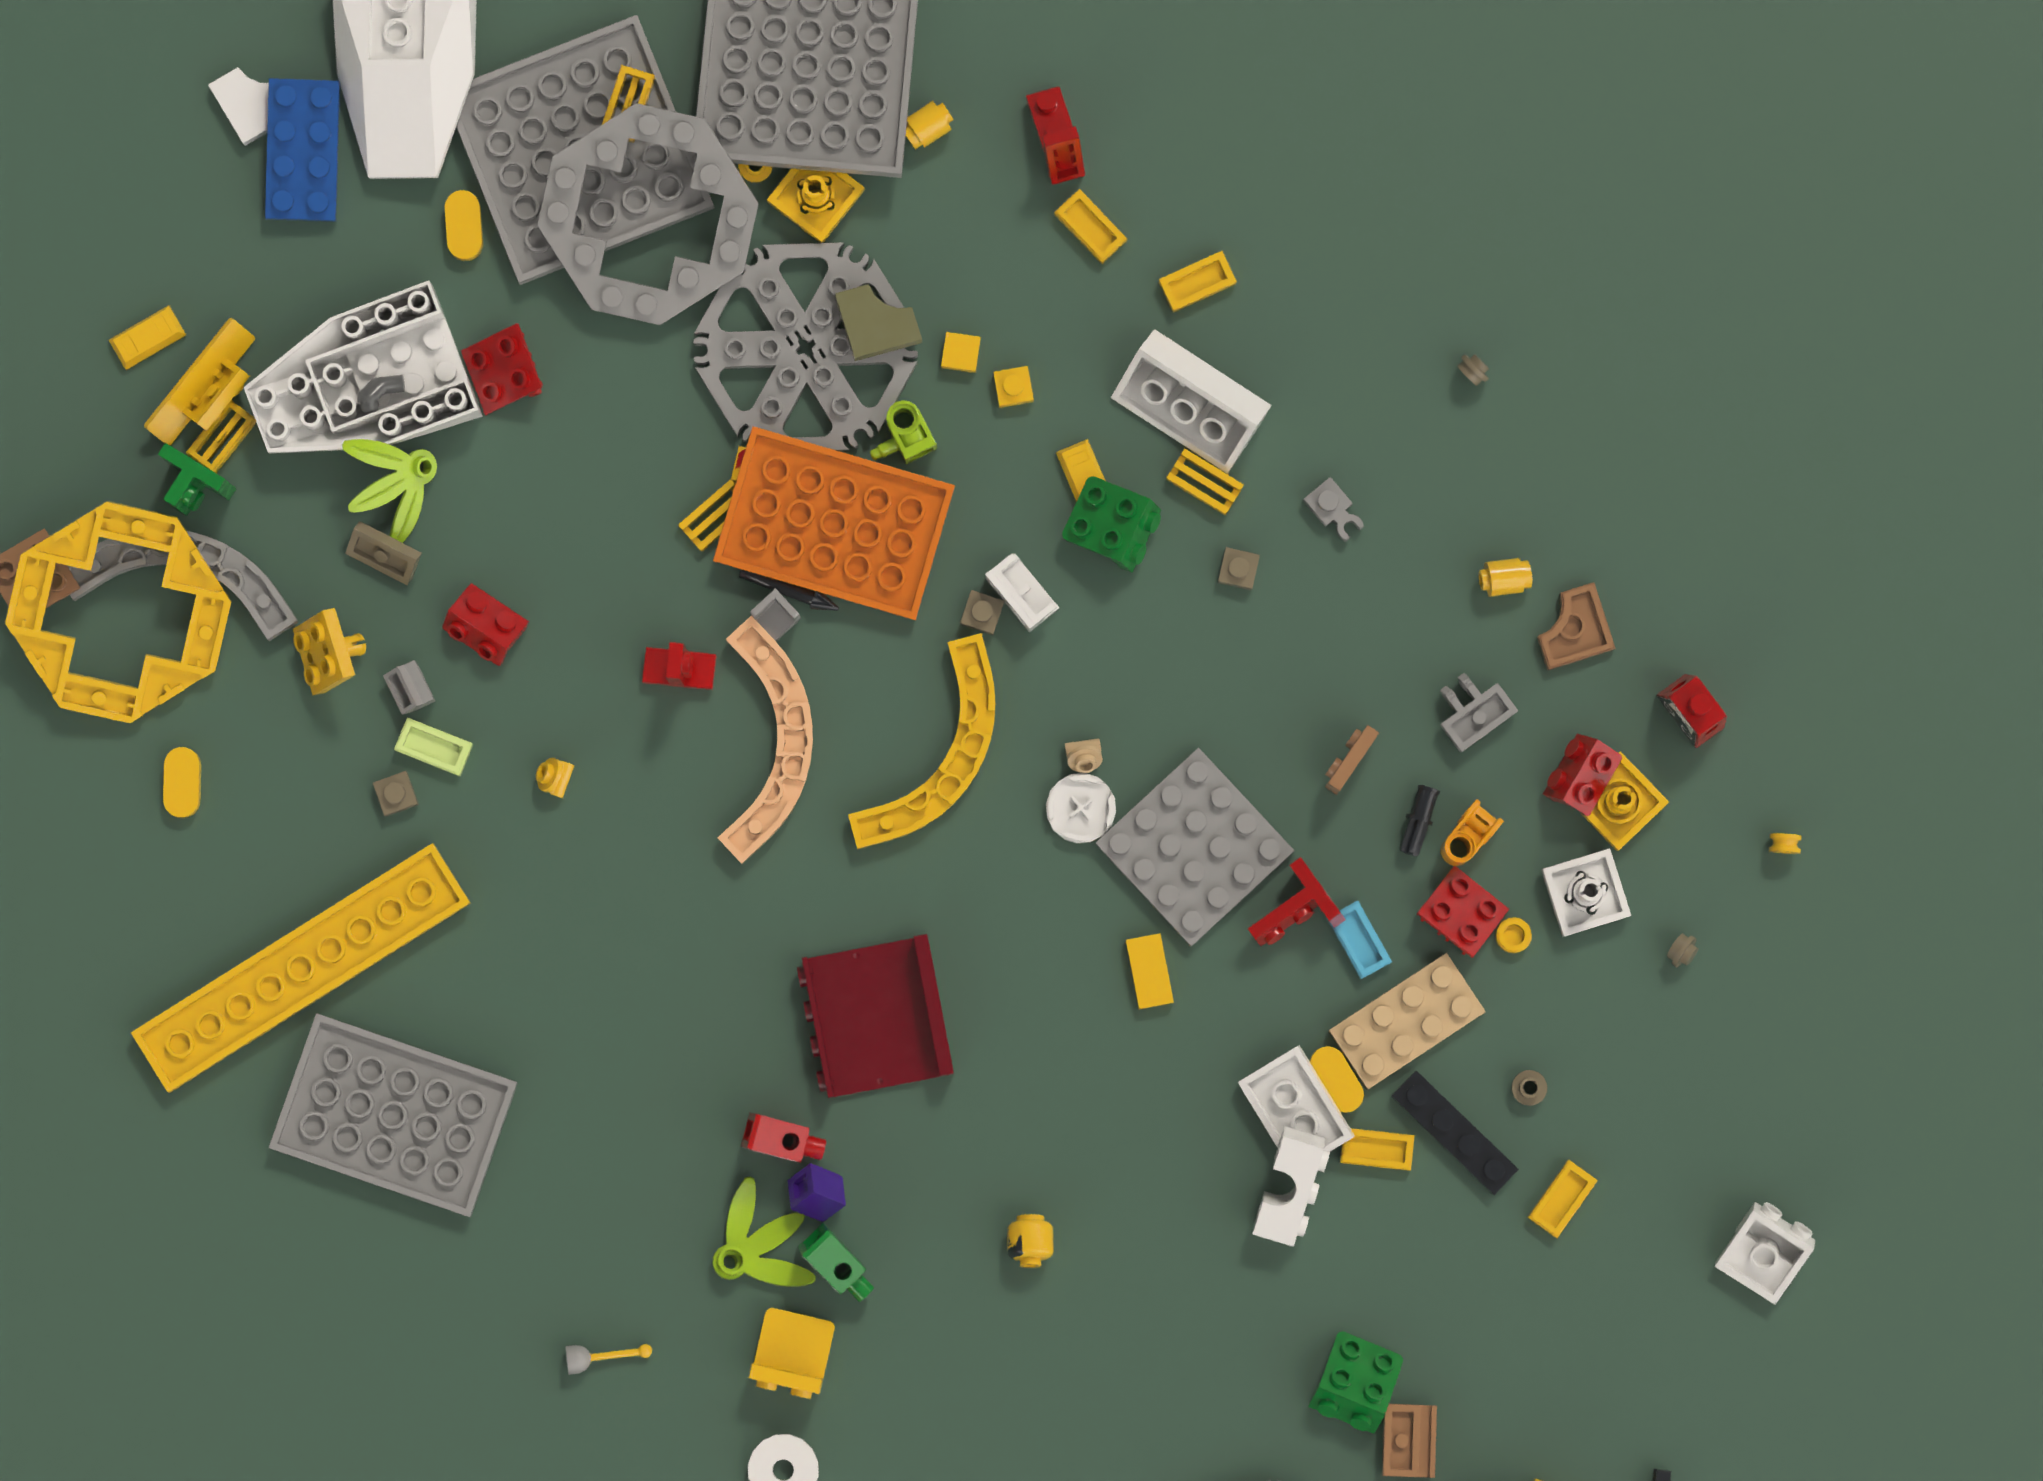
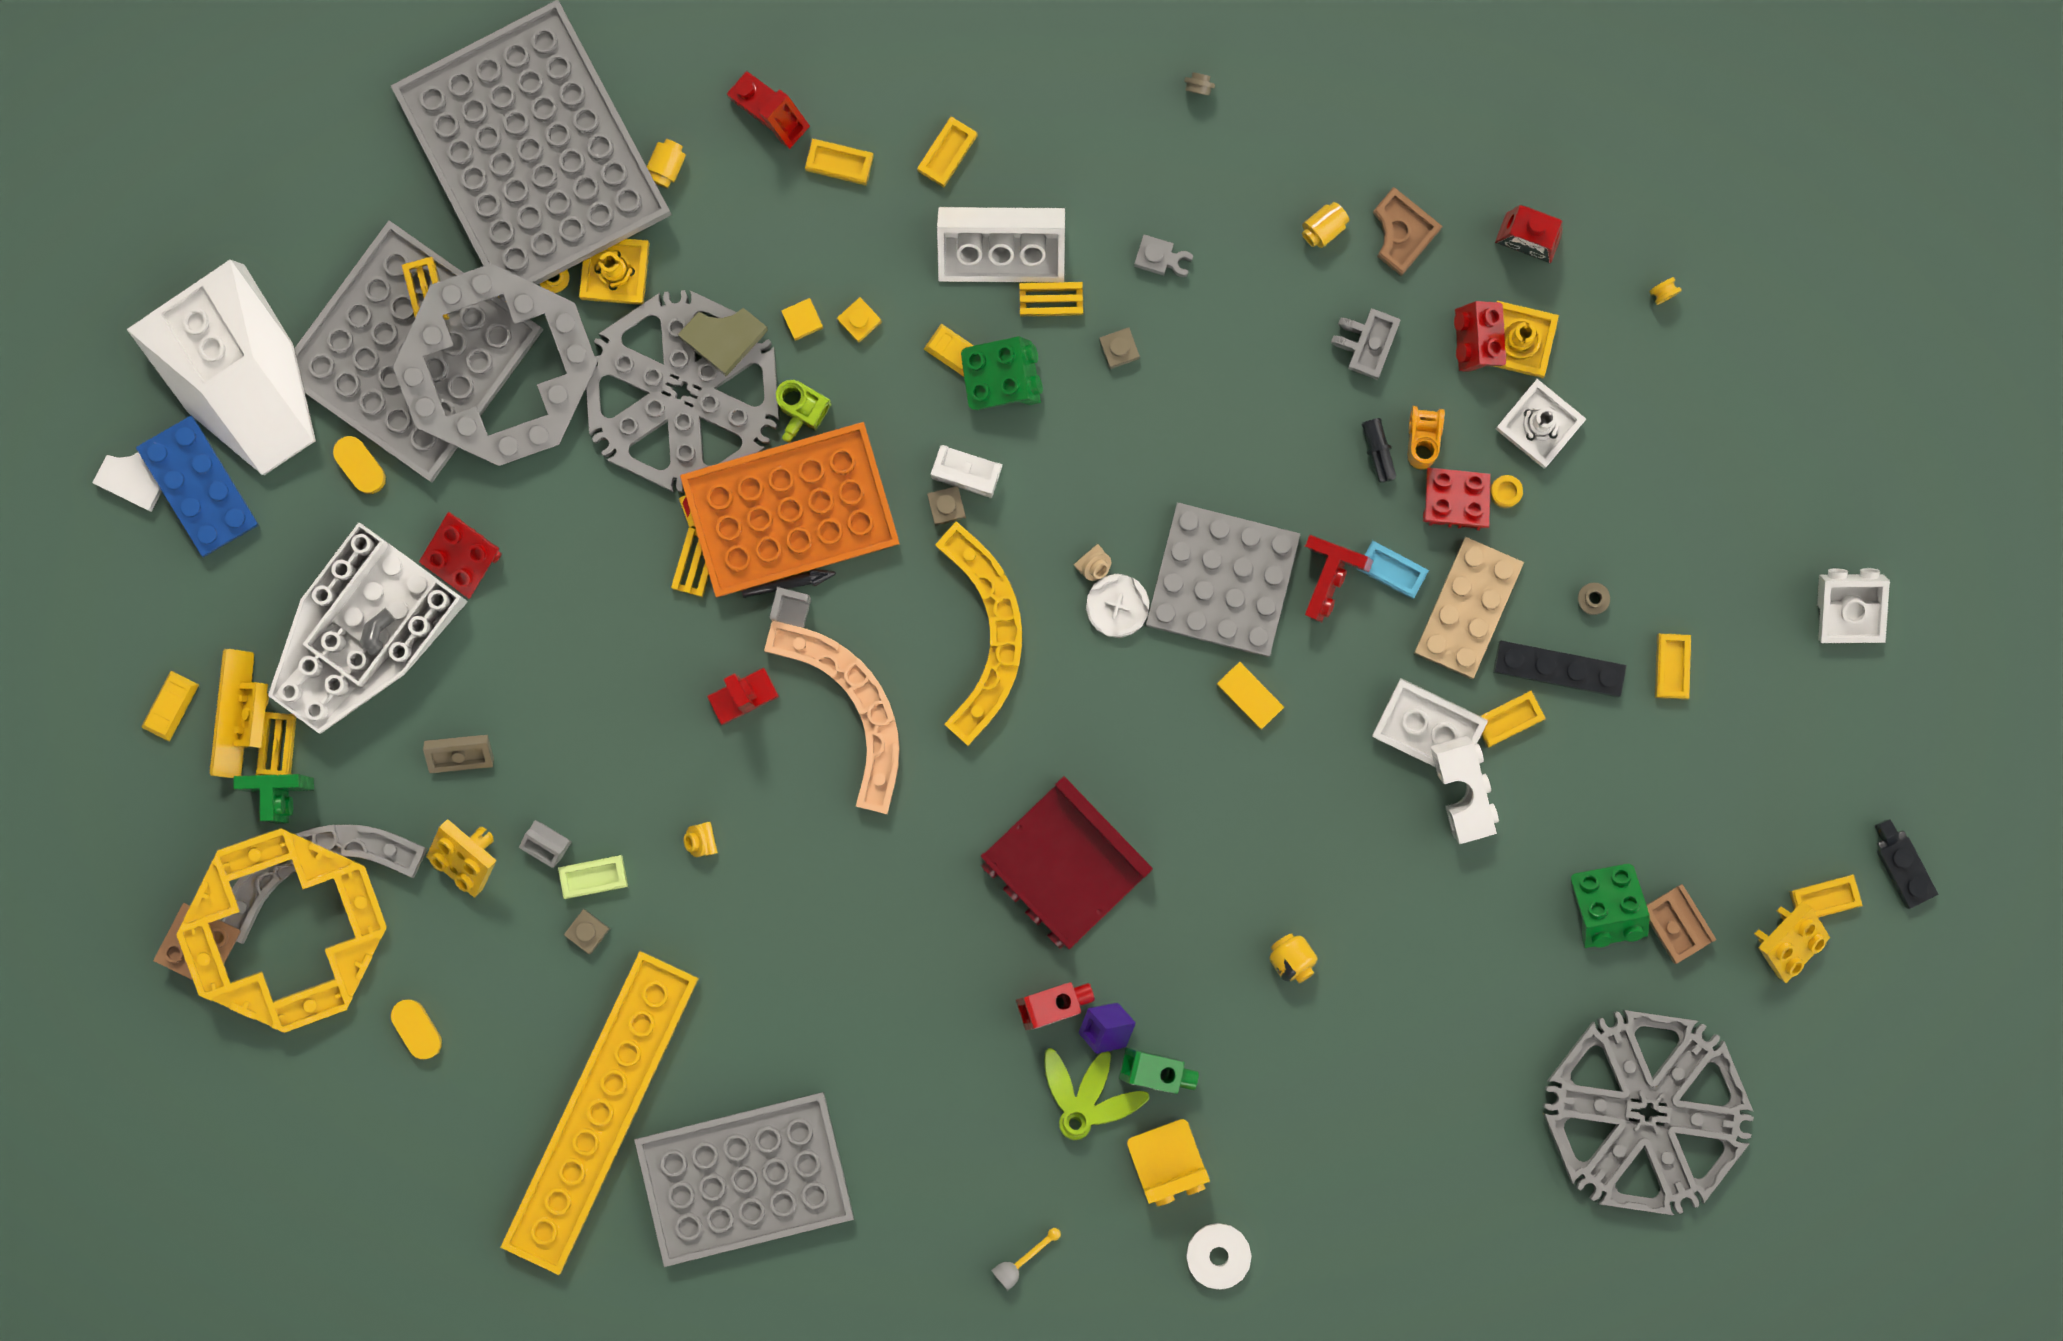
camera: 25 degrees left, 0 degrees up
(405, 478) = (439, 685): lime plant -> none
(484, 624) = (571, 758): red bracket -> none
(1338, 1078) = (1445, 684): yellow tile -> none
(1341, 770) = (1298, 449): medium nougat plate -> none
(1682, 950) = (1642, 420): dark tan plate -> none

